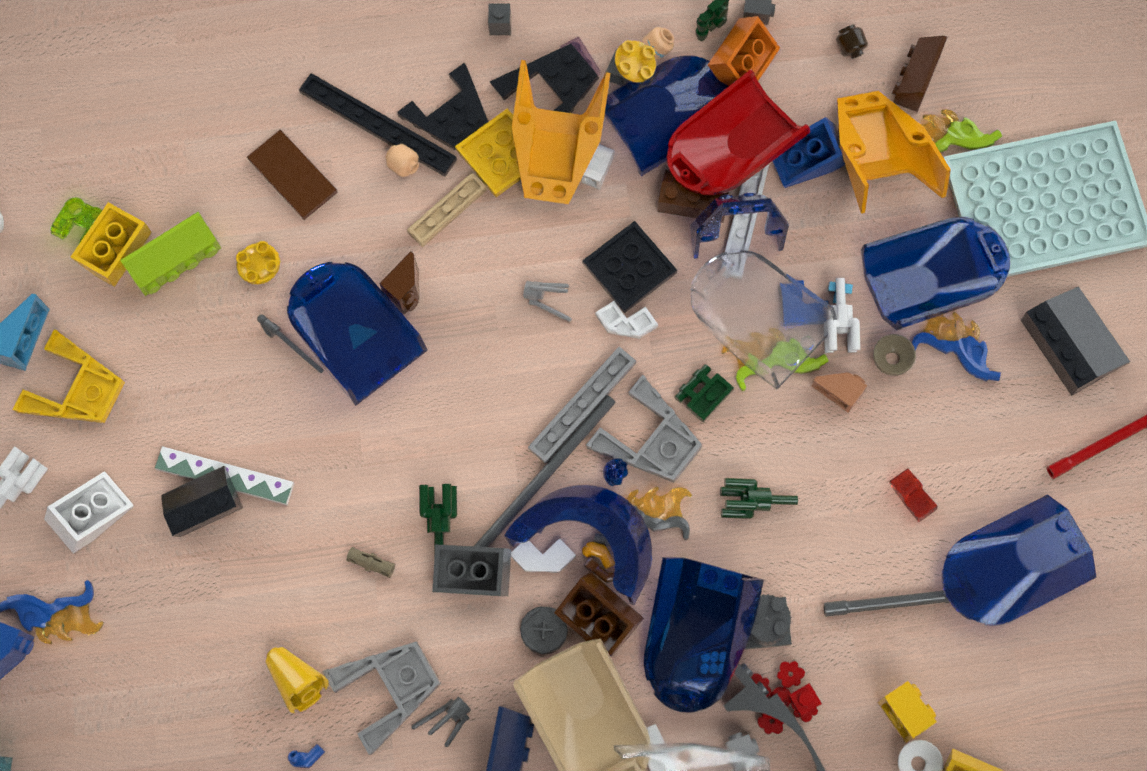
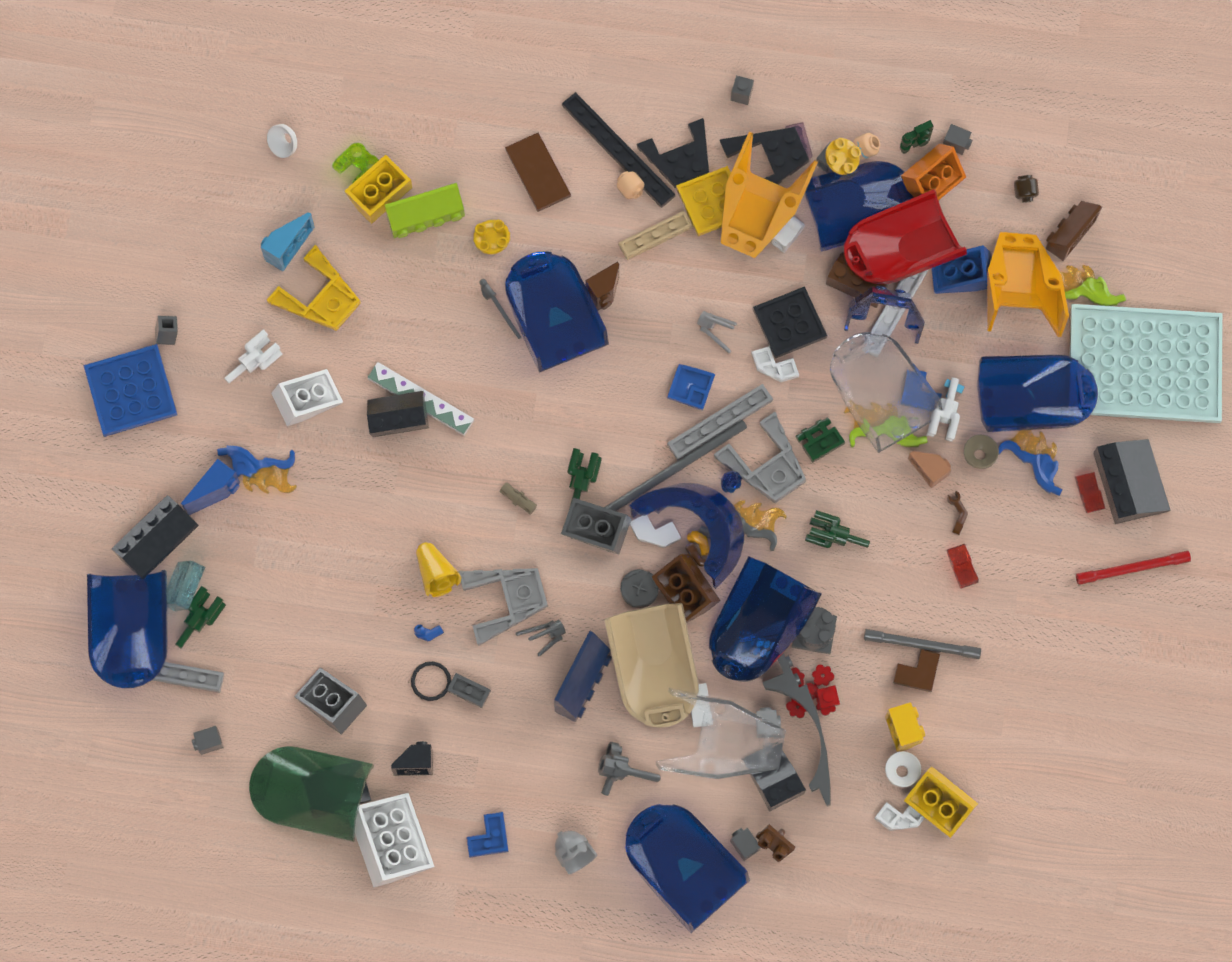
camera: 10 degrees right, 0 degrees up
(537, 372) = (691, 386): none -> blue plate
(894, 450) = (962, 512): none -> reddish brown arm
(907, 640) = (920, 677): none -> reddish brown tile
(1017, 563) = (1027, 641): clear blue windscreen -> none
(1031, 367) = (1089, 492): none -> clear red slope

